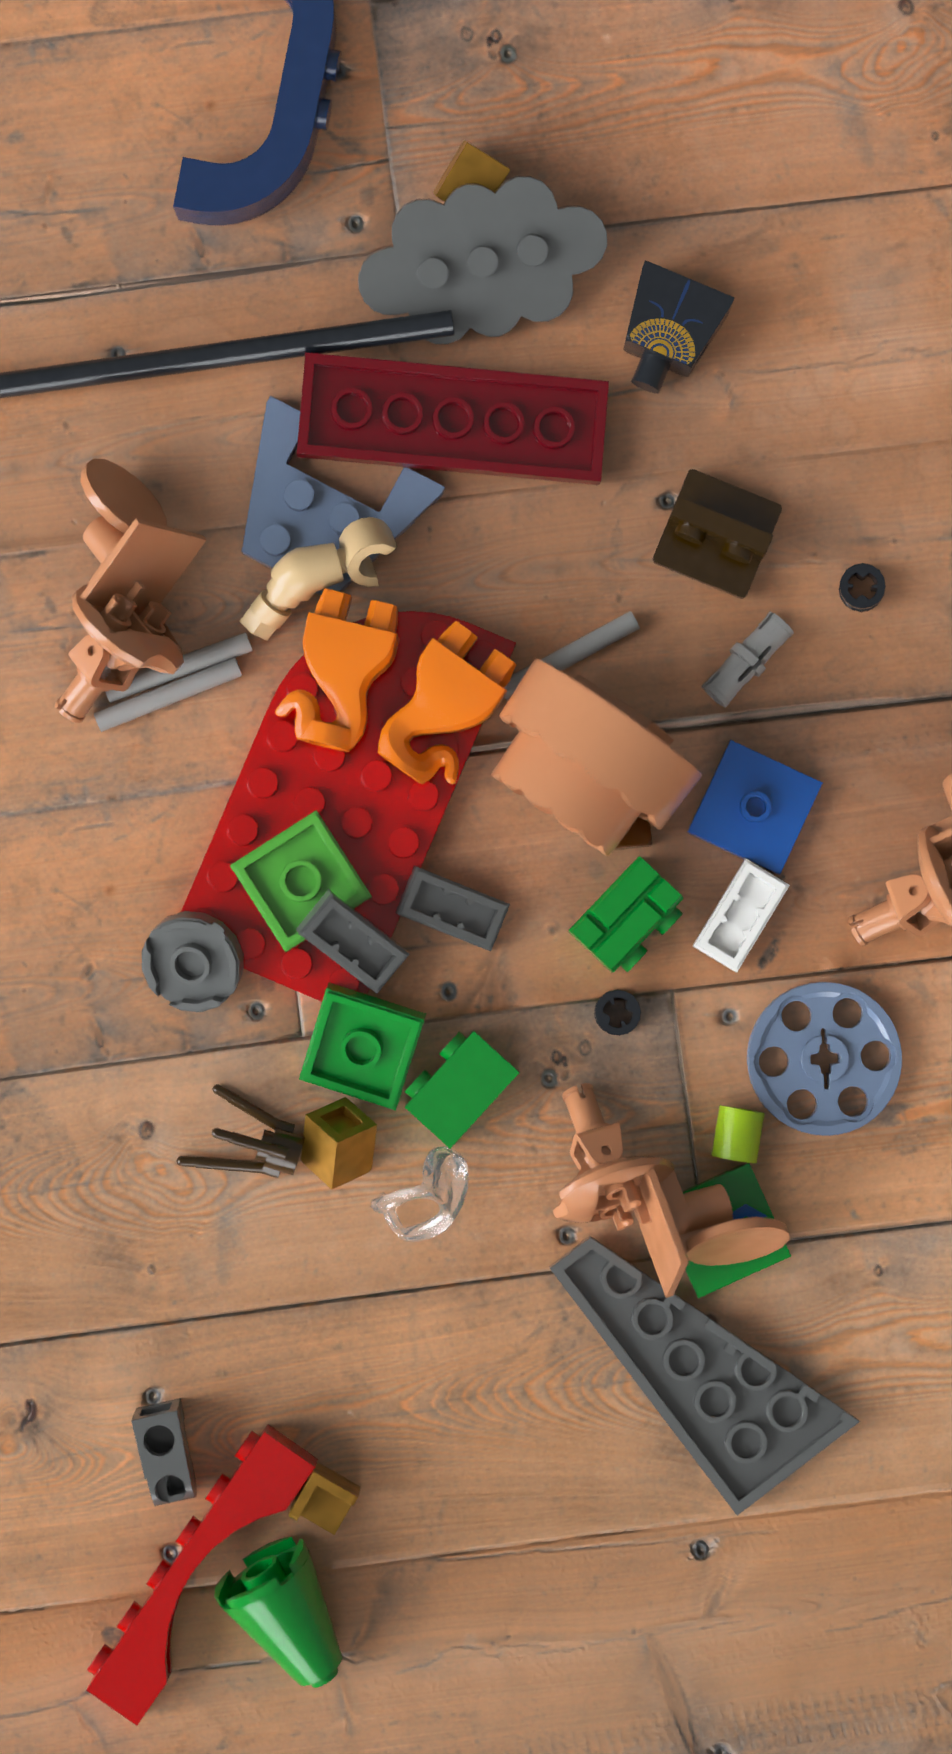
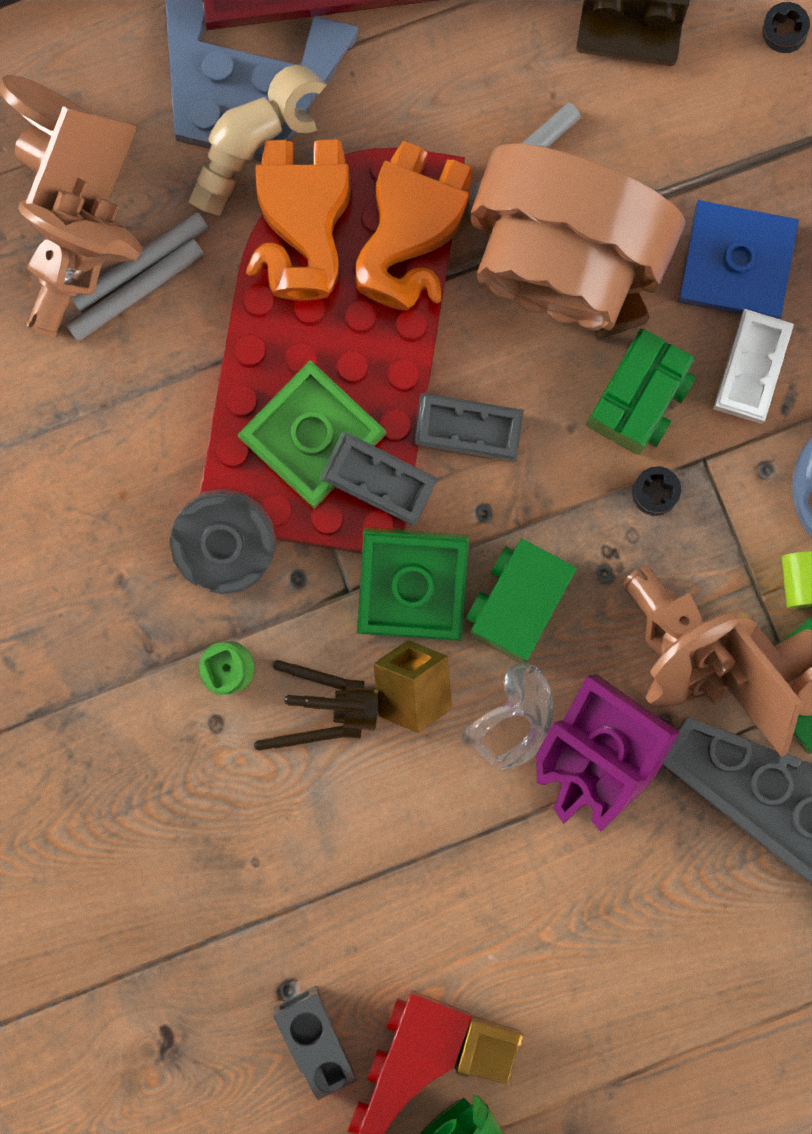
camera: 15 degrees left, 5 degrees down
(168, 1082) = (226, 668): none -> bright green tile
(501, 1250) = (603, 752): none -> magenta plate
(747, 659) = (694, 120): light grey pin -> none

